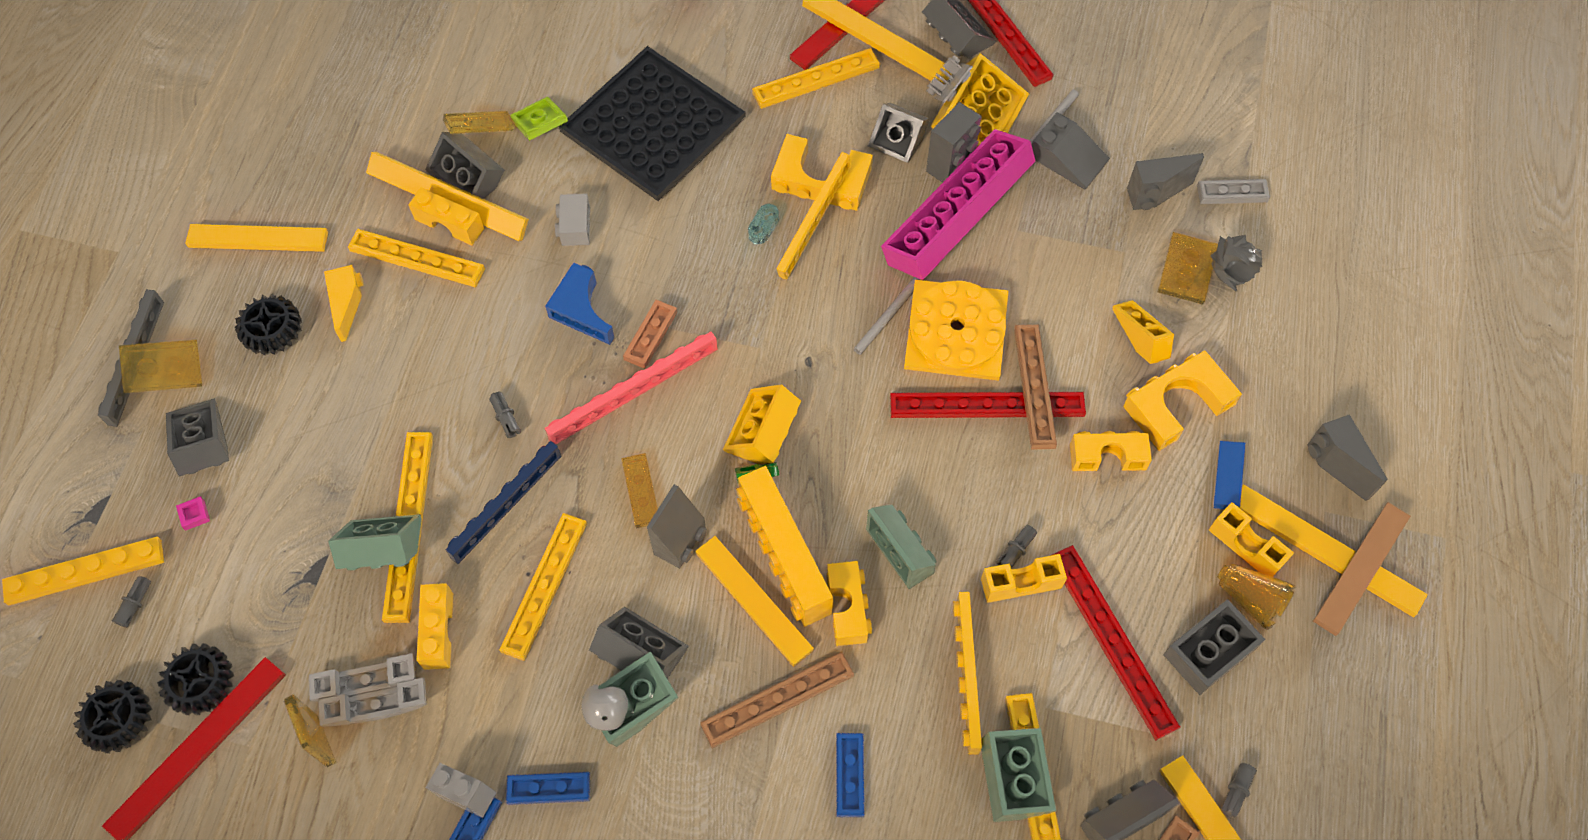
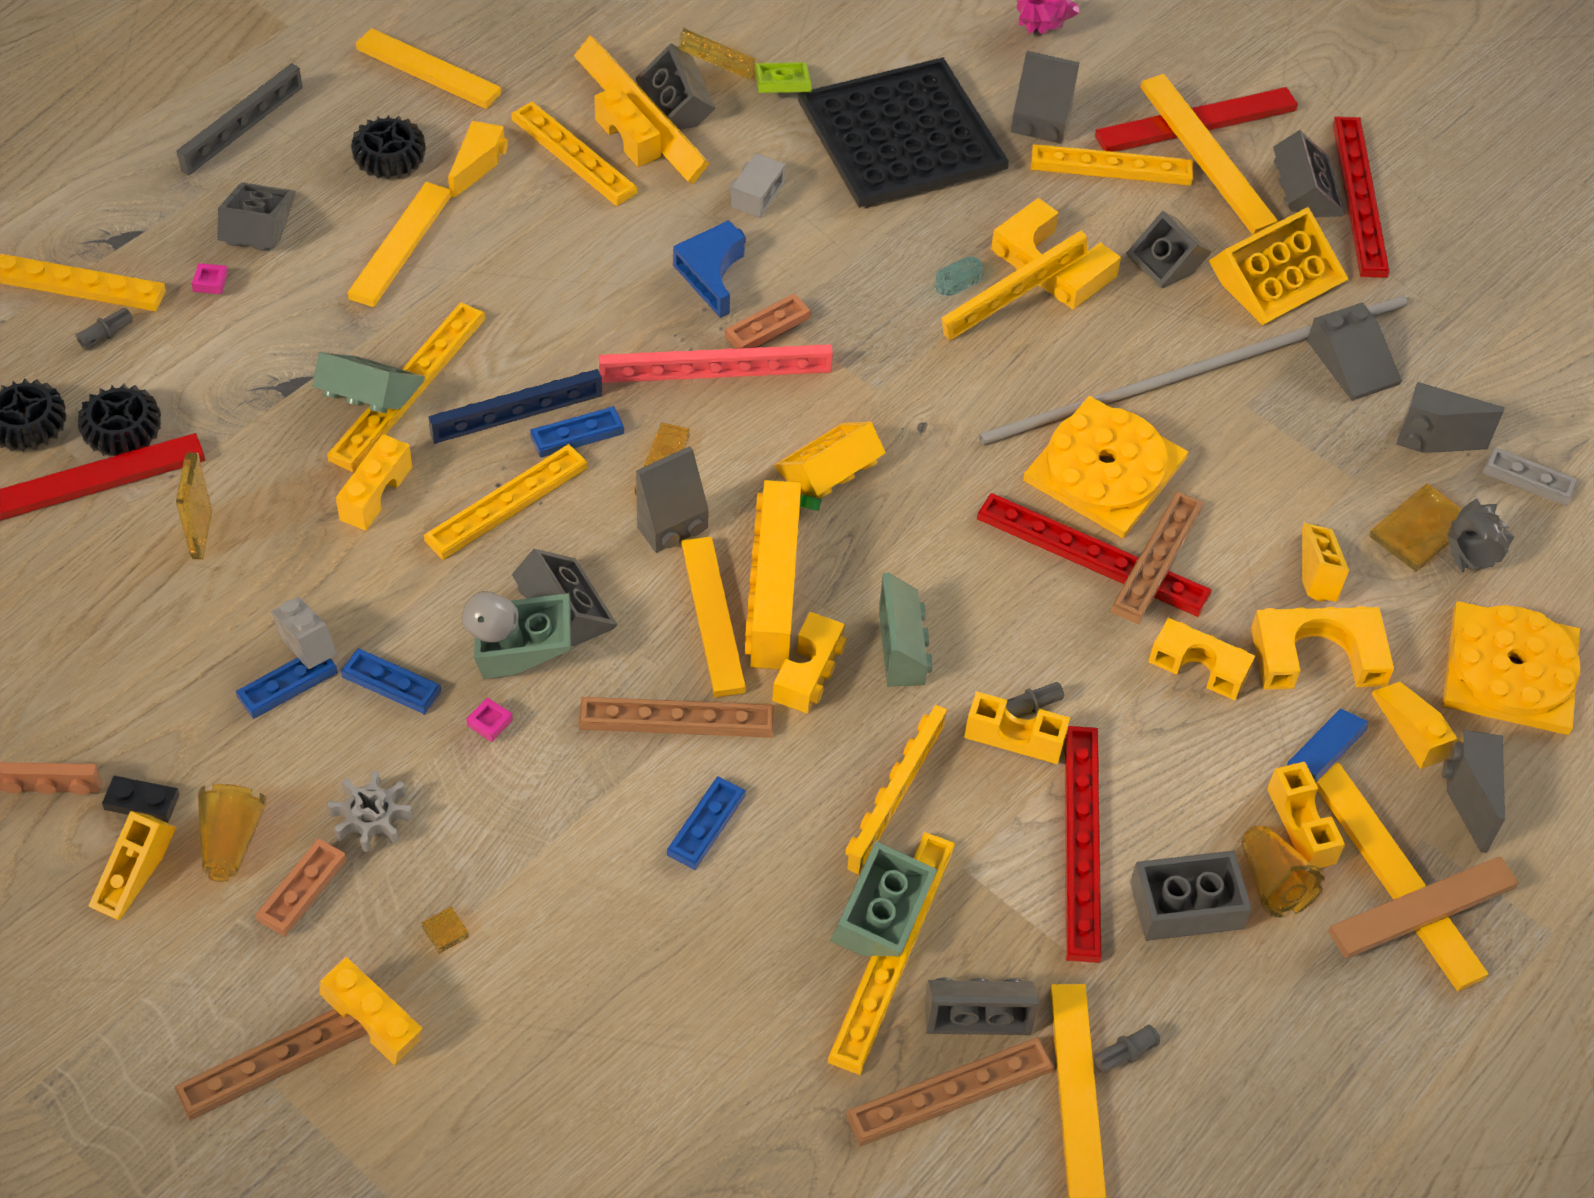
camera: 25 degrees right, 10 degrees down
(160, 366) = (262, 136): clear yellow tile -> none
(327, 405) = (399, 244): none -> yellow tile
(362, 679) = (272, 499): light grey slope -> none
(372, 705) = (269, 525): light grey slope -> none
(504, 414) = (568, 330): dark grey axle -> none
(561, 498) = (577, 431): none -> blue tile
(644, 781) = (489, 719): none -> dark pink plate
(745, 48) = (1045, 97): none -> dark grey slope
(947, 91) = (1272, 216): light grey hinge -> none
(952, 141) = (1217, 280): dark grey brick -> none
(958, 204) = (1187, 343): dark pink brick -> none
(1274, 425) = (1416, 723): none -> yellow slope
(1296, 367) = (1489, 684): none -> yellow piece

